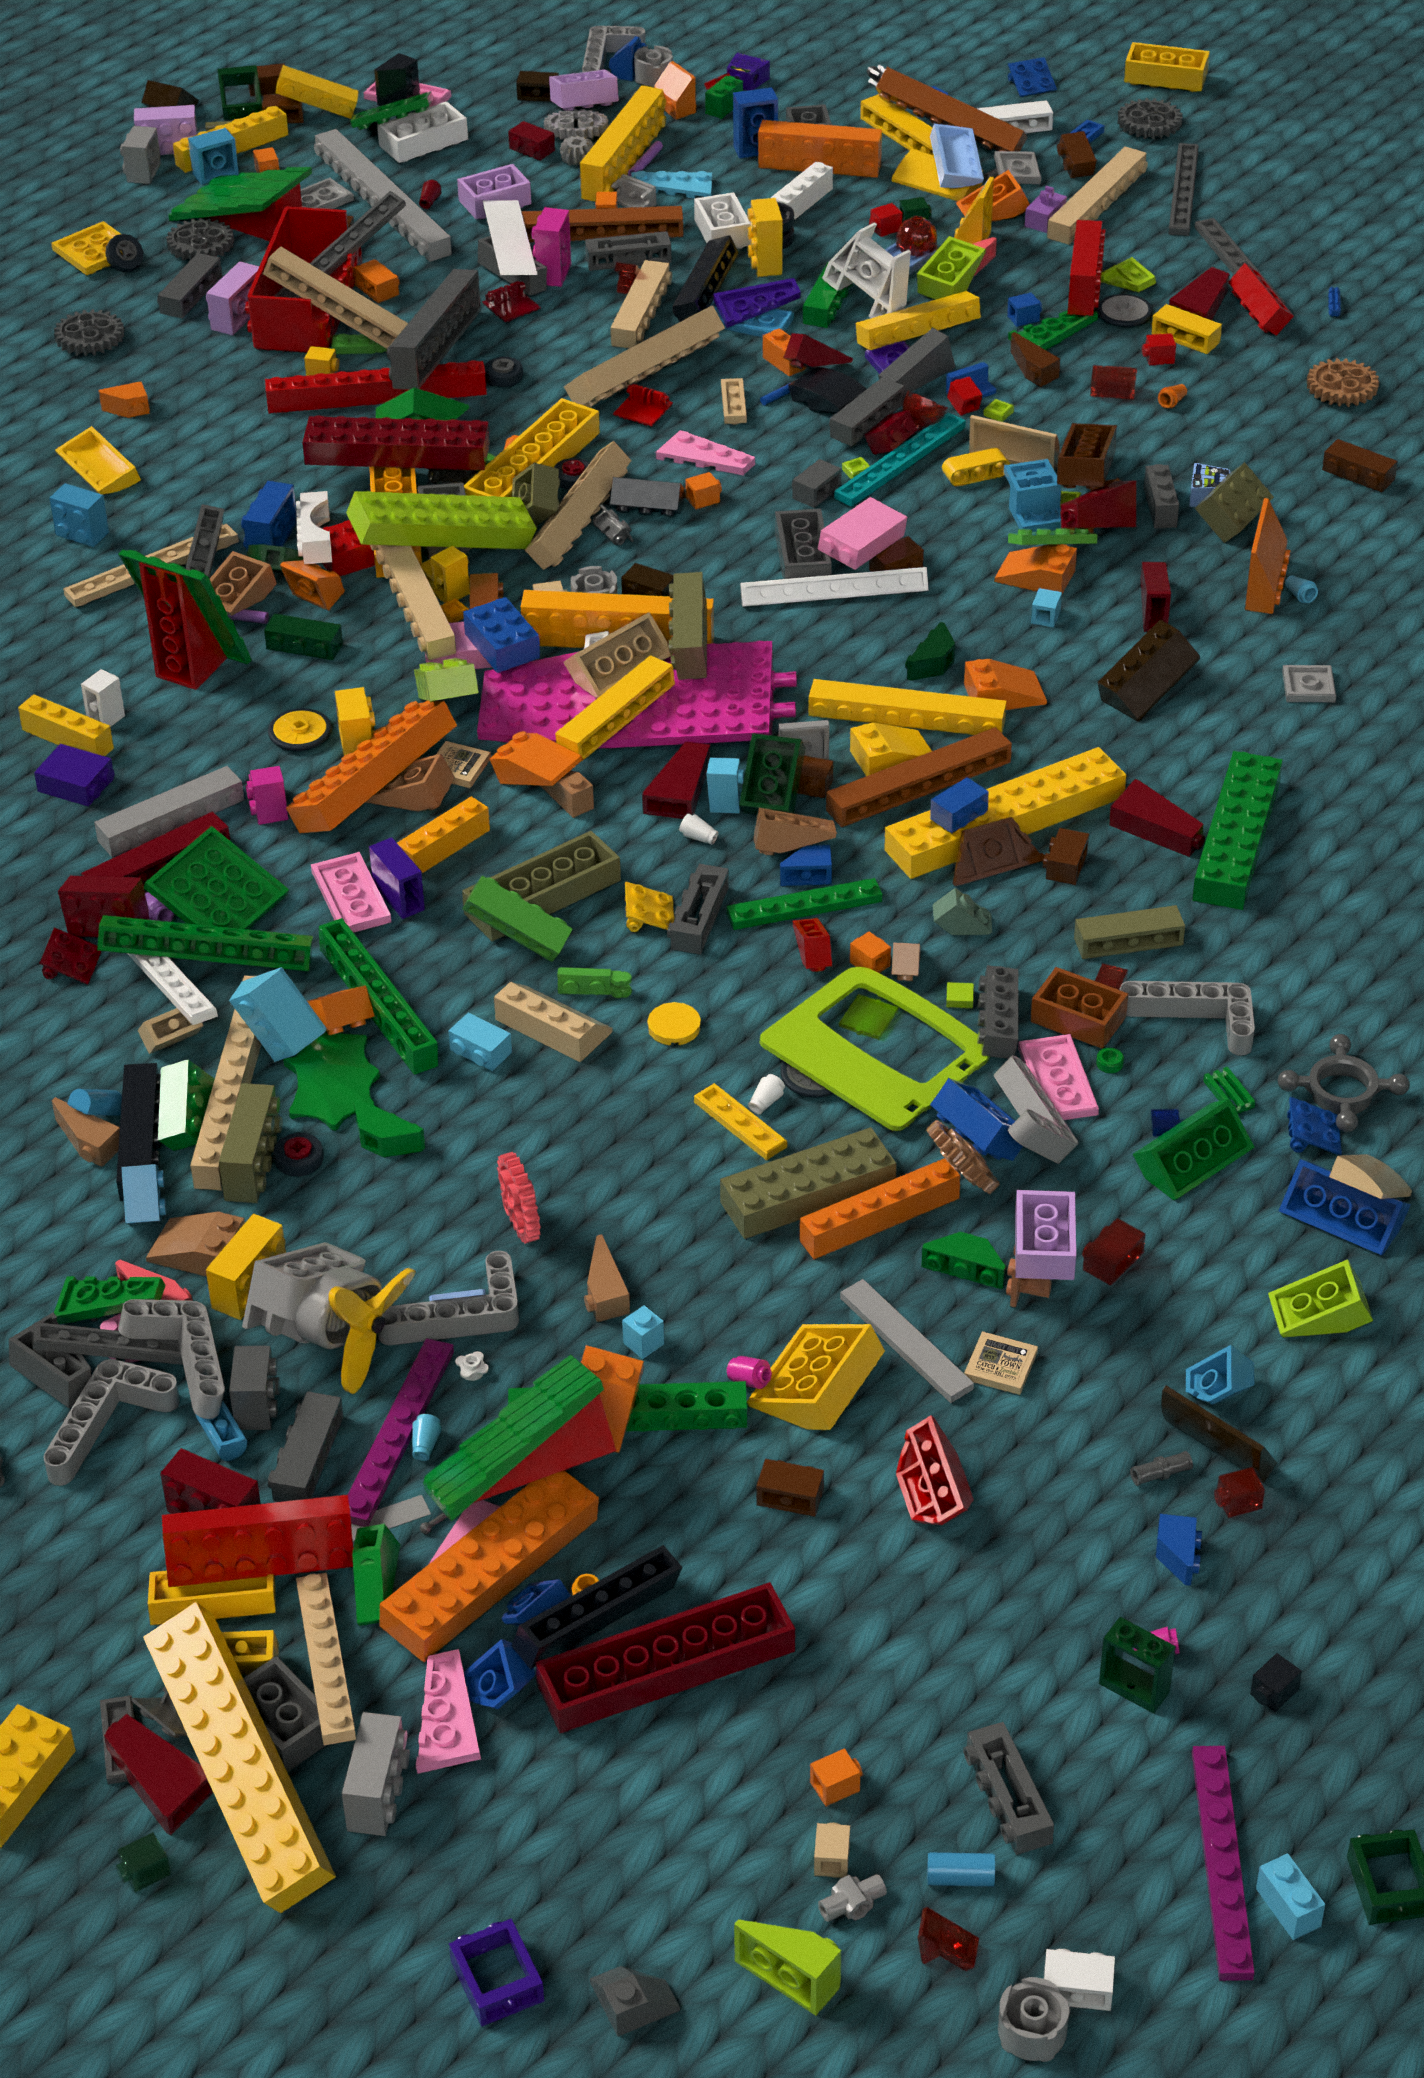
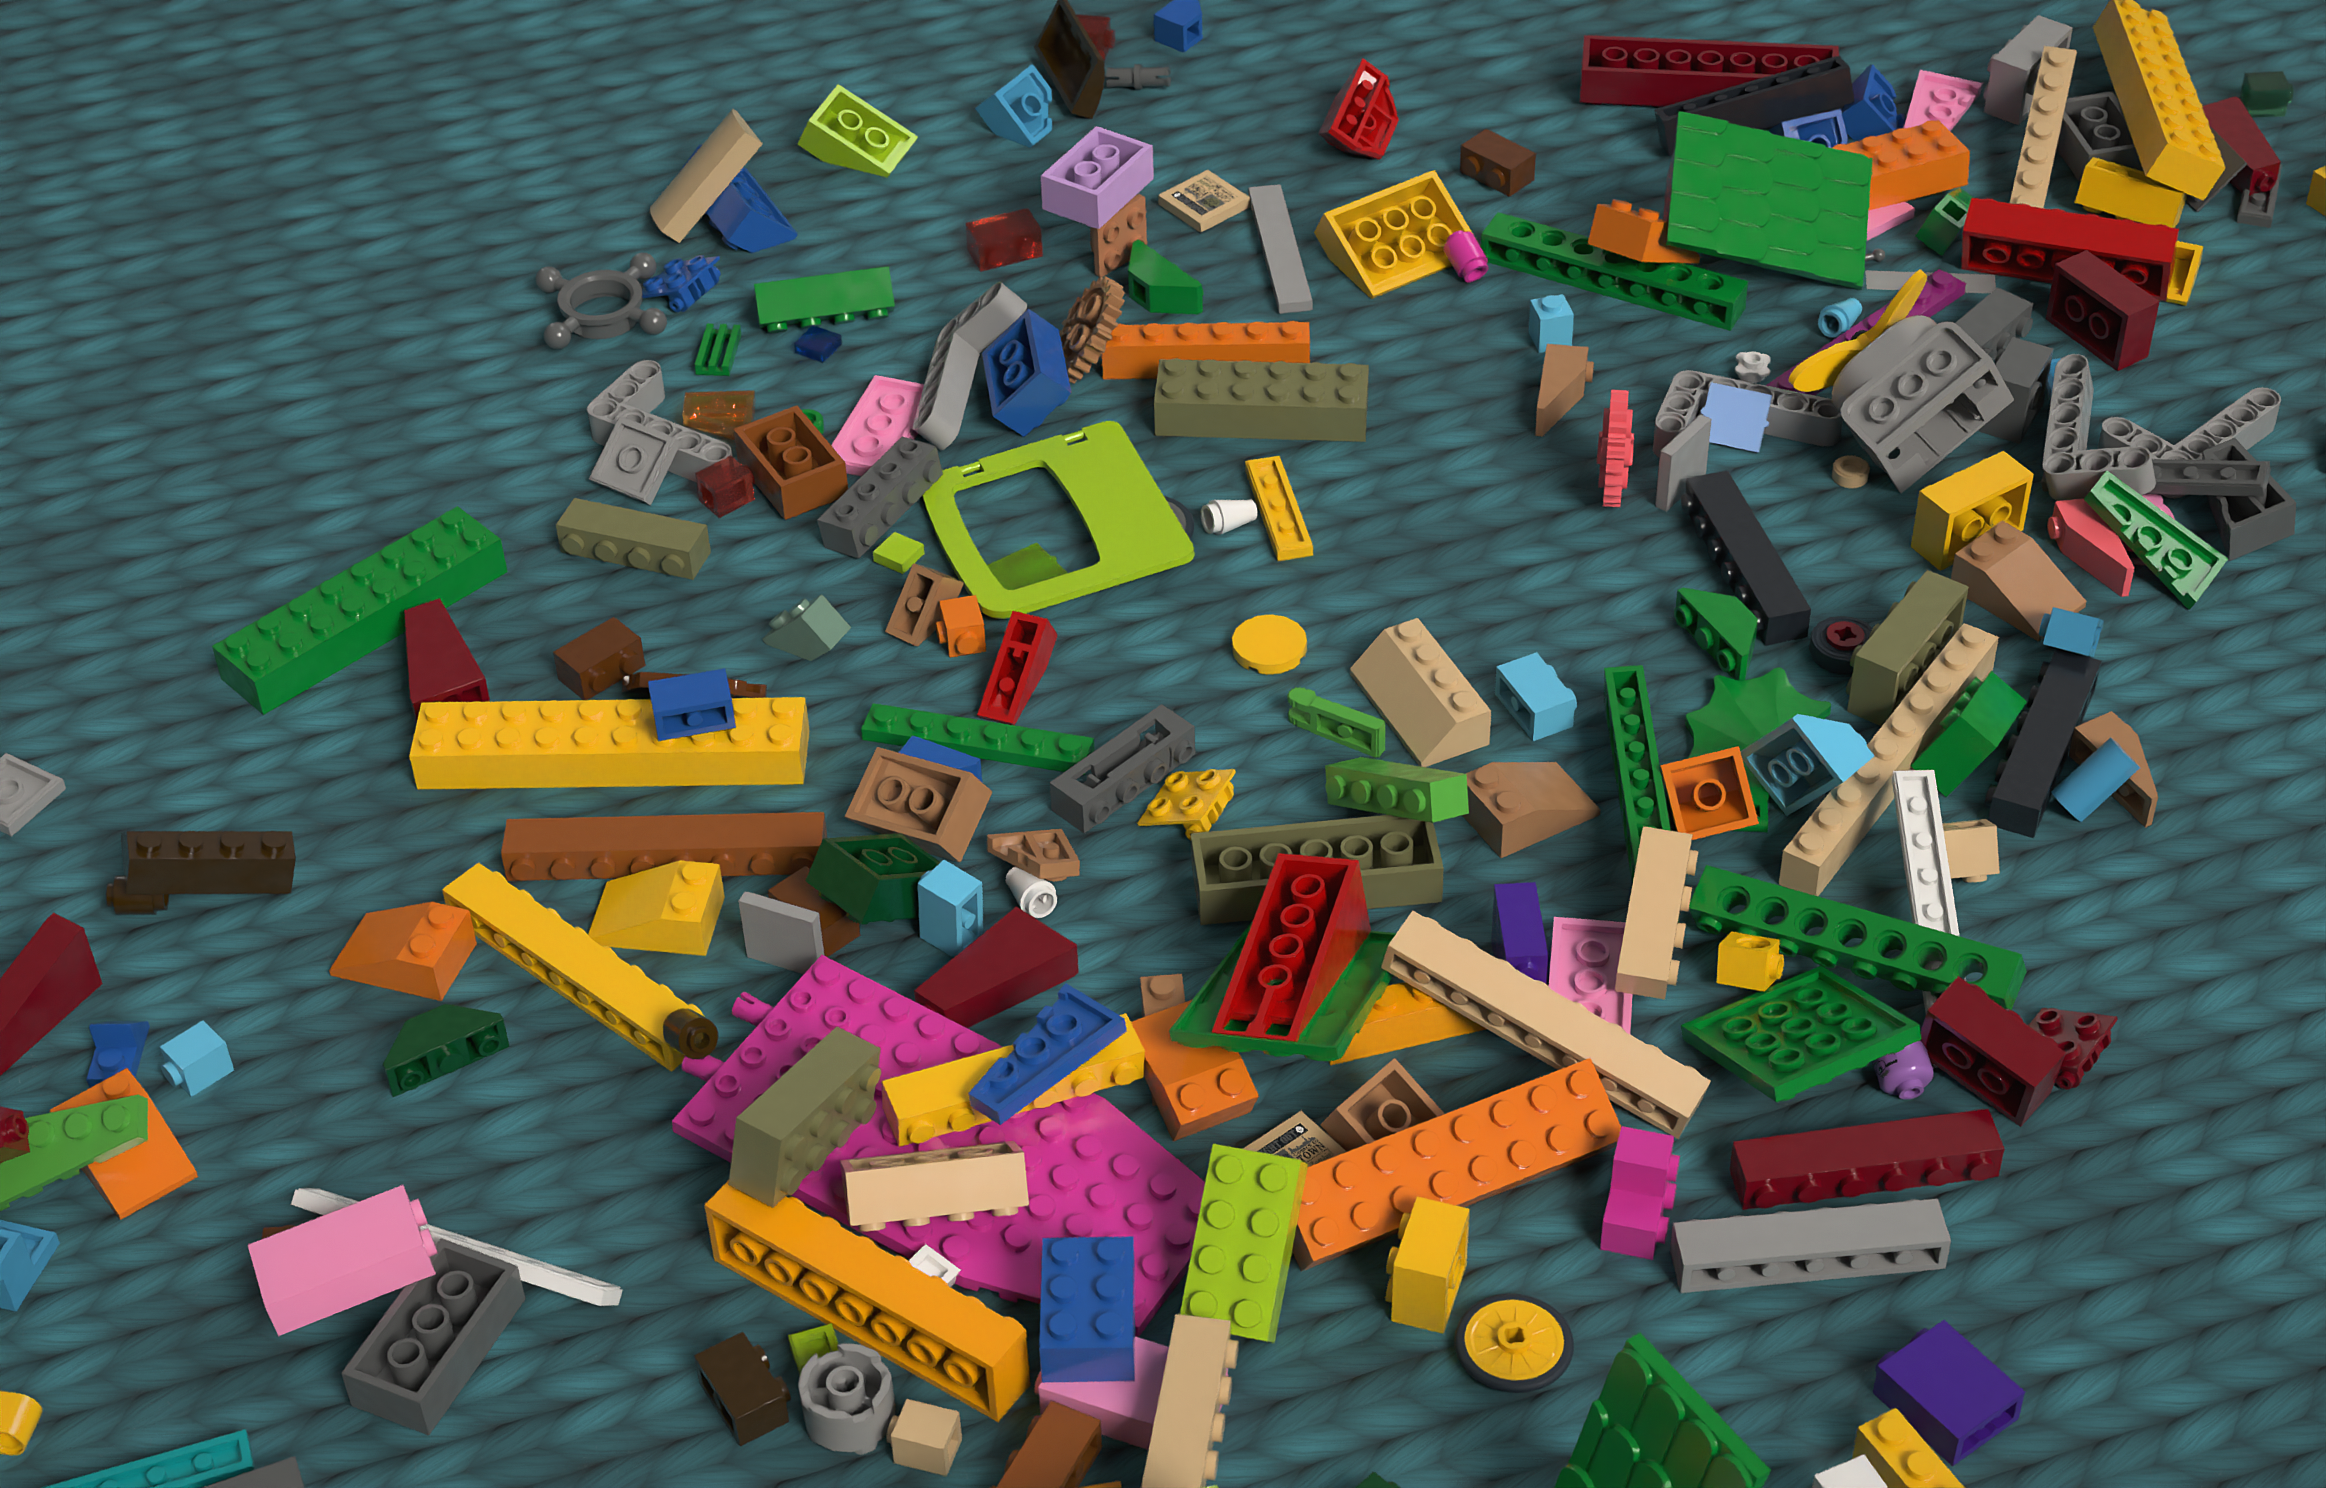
camera: 150 degrees left, 0 degrees up
(271, 916) = (1749, 961): none -> yellow brick
(323, 901) = (1654, 913): none -> tan brick
(356, 832) = (1544, 1022): none -> tan brick
(395, 1192) = (1746, 557): none -> black brick
(447, 976) = (1524, 804): none -> medium nougat slope
(471, 1228) = (1682, 459): none -> light grey tile
(499, 793) = (1298, 971): none -> red piece
(597, 700) = (1053, 1049): none -> blue wing
(706, 842) = (1040, 853): none -> medium nougat wing
(798, 671) = (690, 1033): none -> dark brown brick
(1094, 603) = (117, 1048): none -> blue slope
(1170, 1039) = (719, 411): none -> clear orange wing
(1182, 973) = (635, 460): none -> light grey tile

